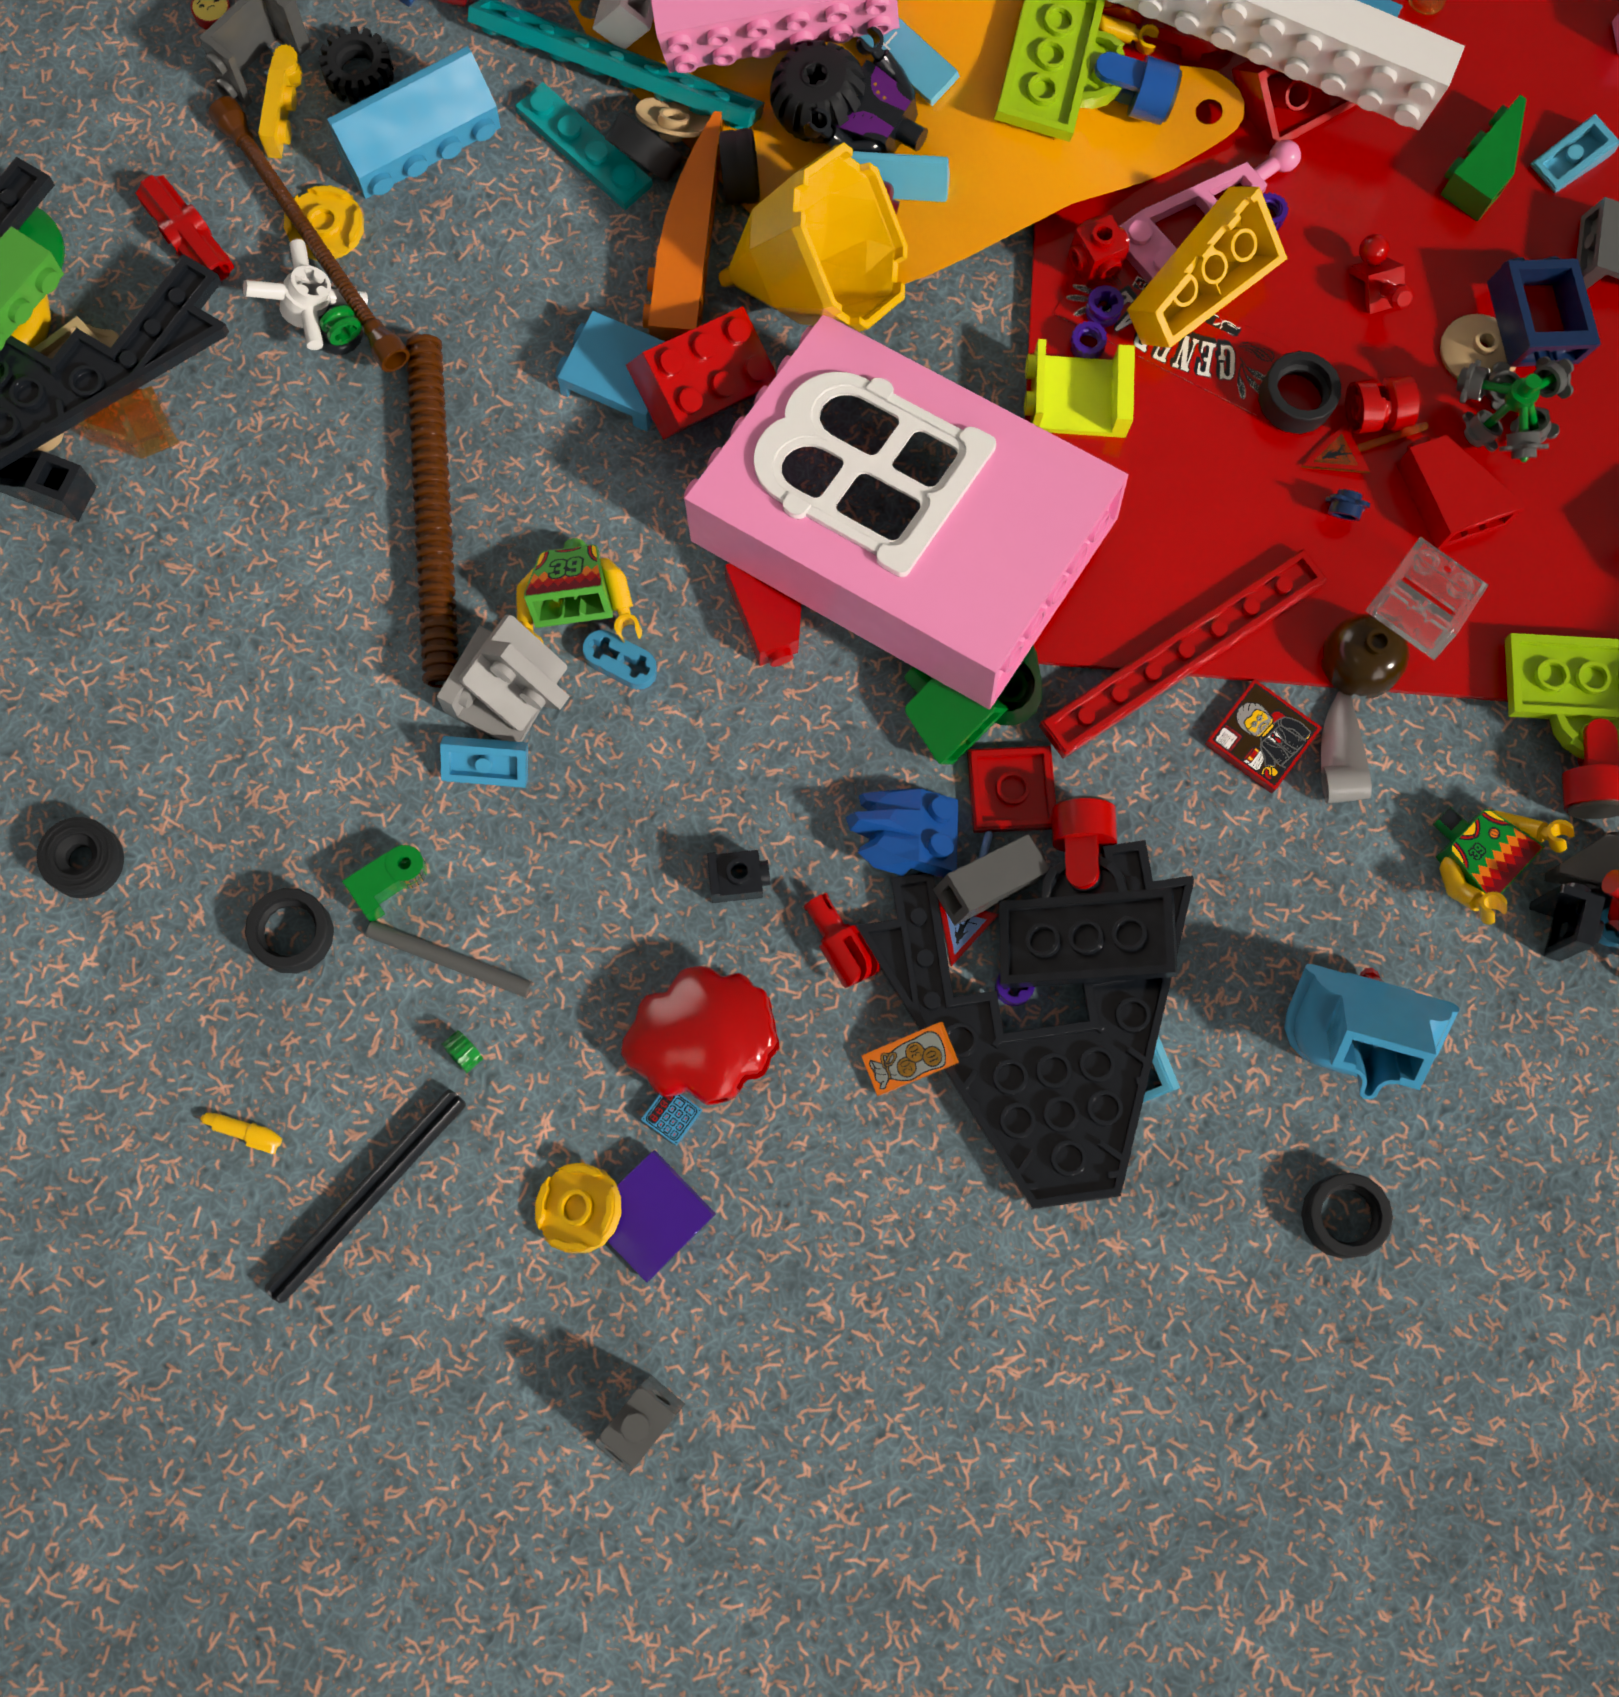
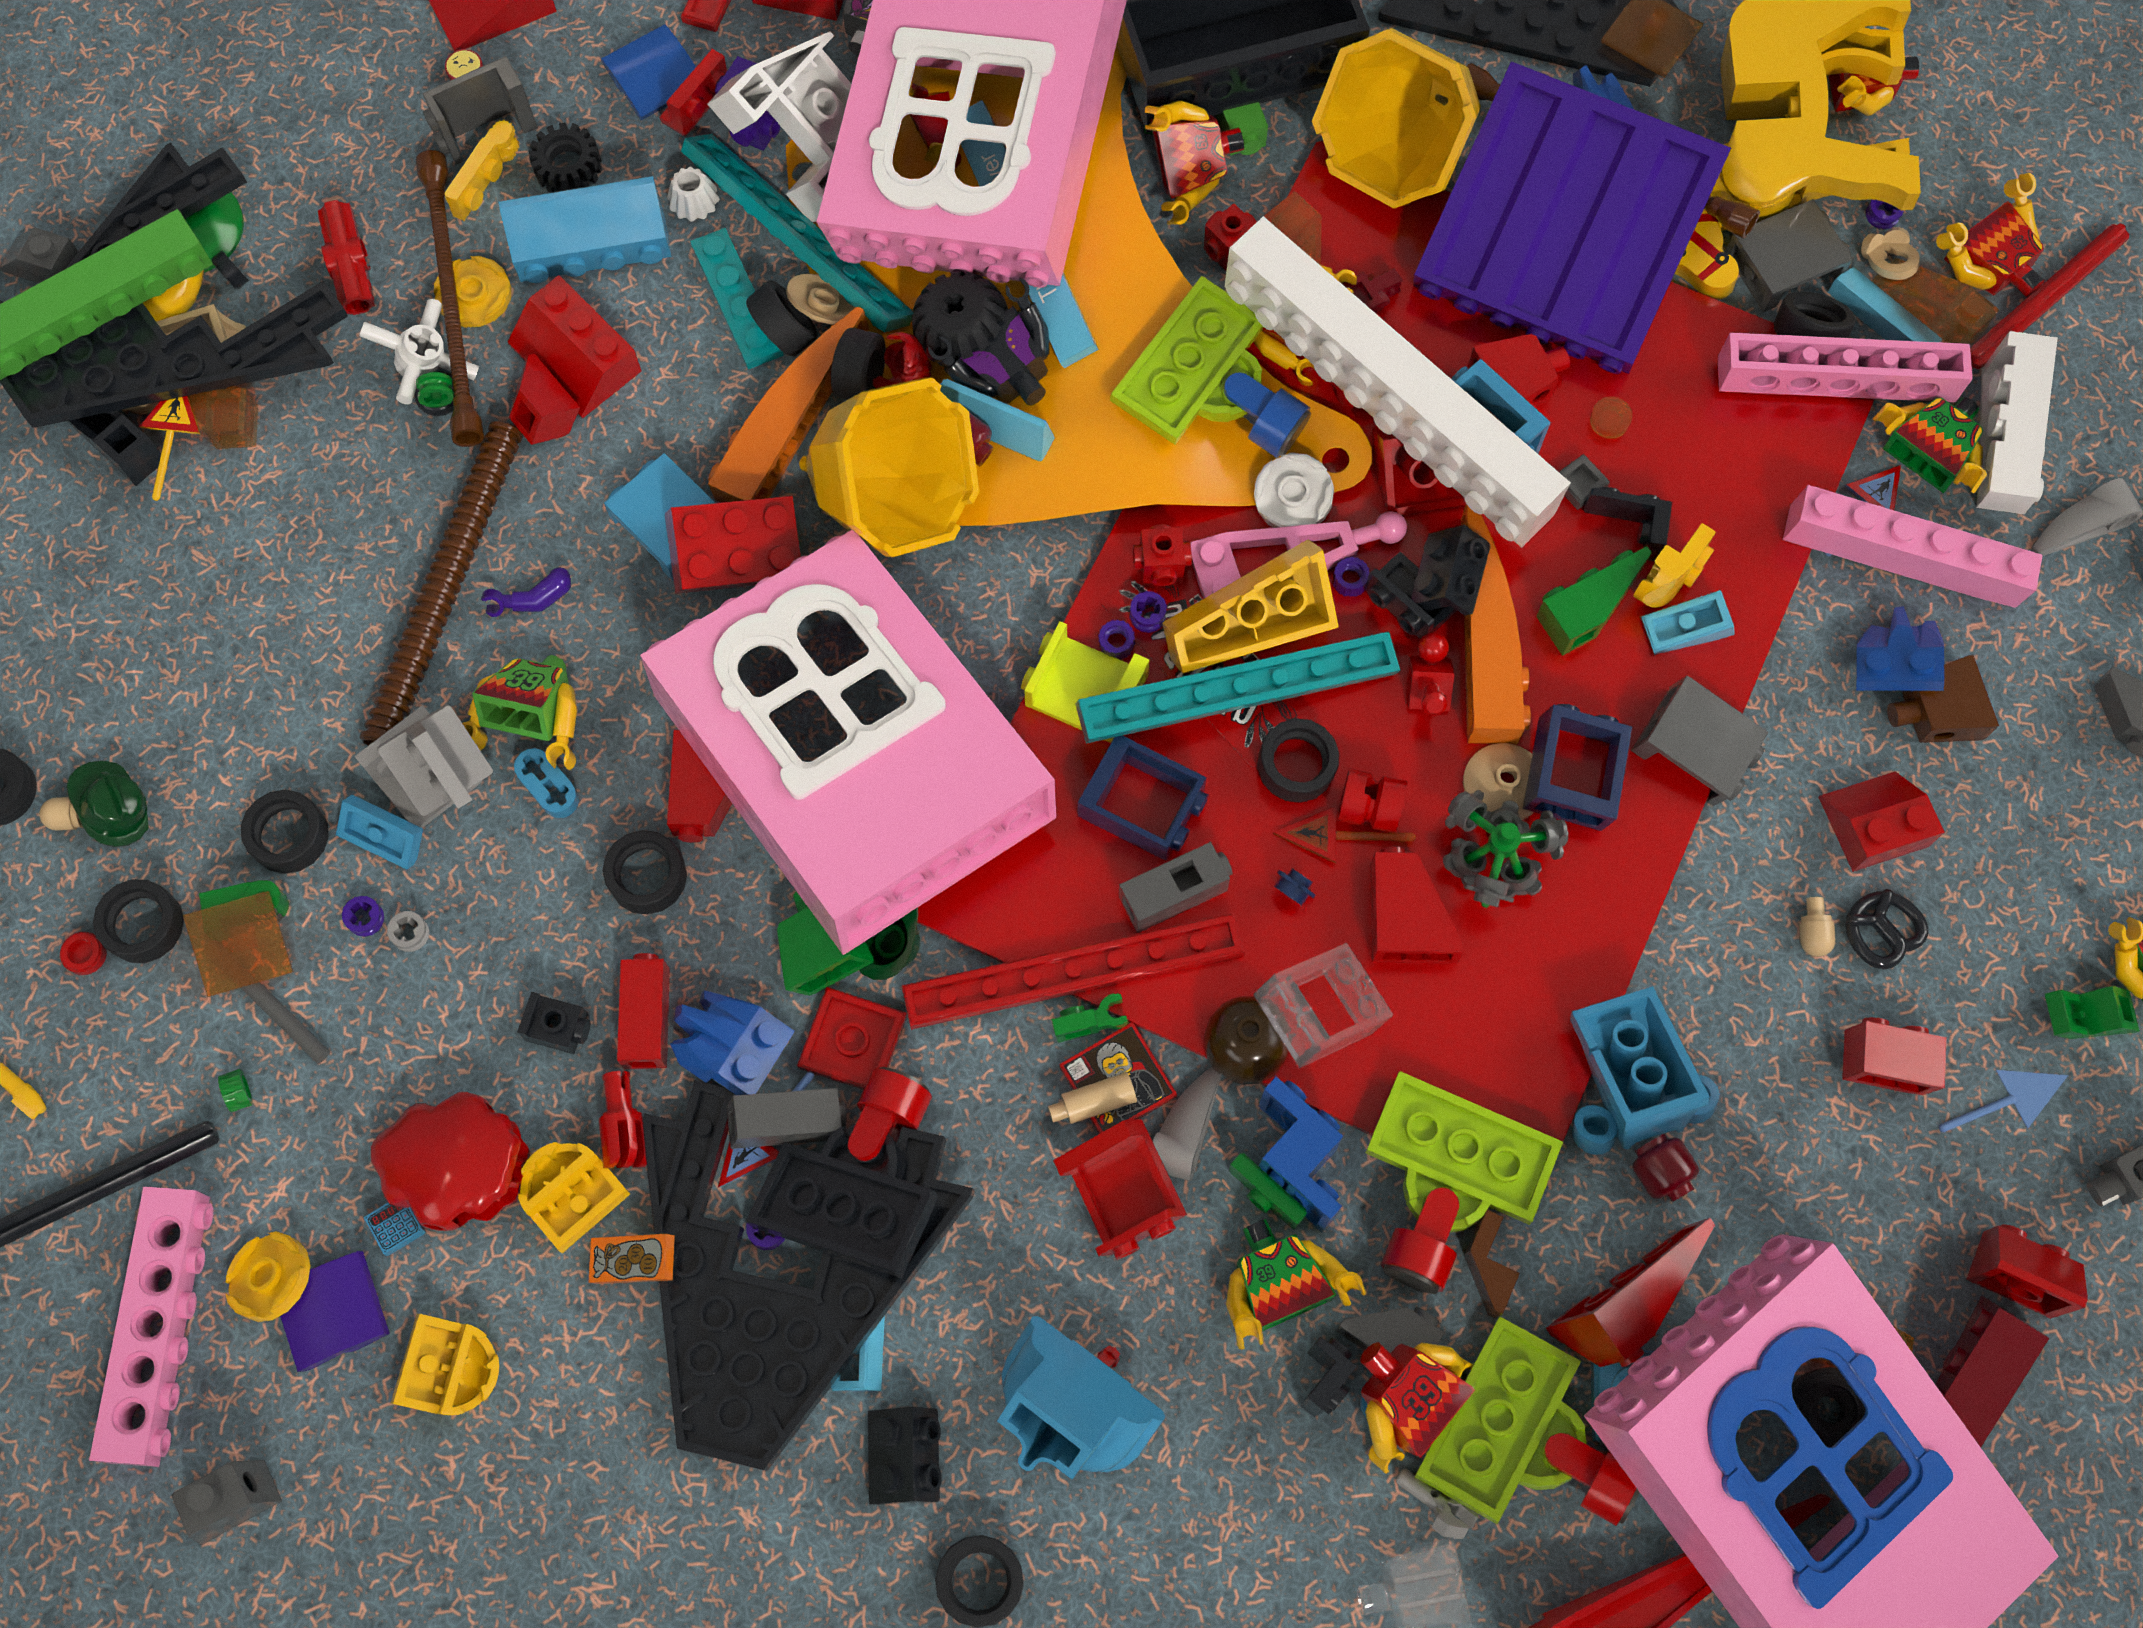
camera: 30 degrees right, 5 degrees down
(75, 281) = (229, 270): none -> black tile
(93, 437) = (170, 416): none -> piece
(167, 856) = (59, 814): none -> tan cylinder
(204, 831) = (108, 803): none -> dark green piece
(247, 981) = (82, 953): none -> red tile
(377, 766) = (268, 806): none -> black tyre
(402, 914) = (238, 943): none -> clear orange piece
(446, 304) = (541, 404): none -> red slope
(447, 1189) = (132, 1345): none -> bright pink brick
(451, 241) = (574, 345): none -> red slope
(497, 59) = (692, 194): none -> white piece
(516, 840) = (349, 917): none -> dark purple bush
(528, 493) = (535, 600): none -> dark purple arm
(541, 845) = (395, 930): none -> light grey bush
(757, 676) = (631, 844): none -> black tyre
(782, 152) = (905, 360): none -> red hair
(784, 1223) = (446, 1367): none -> yellow slope
(814, 834) = (643, 1012): none -> red brick
(822, 1021) = (568, 1191): none -> yellow slope
(1184, 152) = (1293, 491): none -> white tile
(1185, 442) = (1124, 751): none -> dark blue window
(1209, 696) = (1078, 1022): none -> green plate
(1221, 344) = (1236, 687): none -> teal plate
(1229, 1135) = (903, 1455): none -> black bracket
(1243, 543) = (1175, 886): none -> dark grey brick
(1258, 757) = (1094, 1099): none -> tan cylinder
(1320, 827) = (1123, 1187): none -> red panel
(1331, 212) = (1393, 590): none -> black bracket
(1363, 173) = (1451, 570): none -> black bracket
(1415, 222) = (1493, 655): none -> orange slope
(1440, 783) = (1266, 1192): none -> green plate
(1461, 737) = (1302, 1150): none -> blue bracket
(1504, 65) = (1646, 509): none -> black bracket
(1555, 103) = (1675, 569): none -> yellow slope

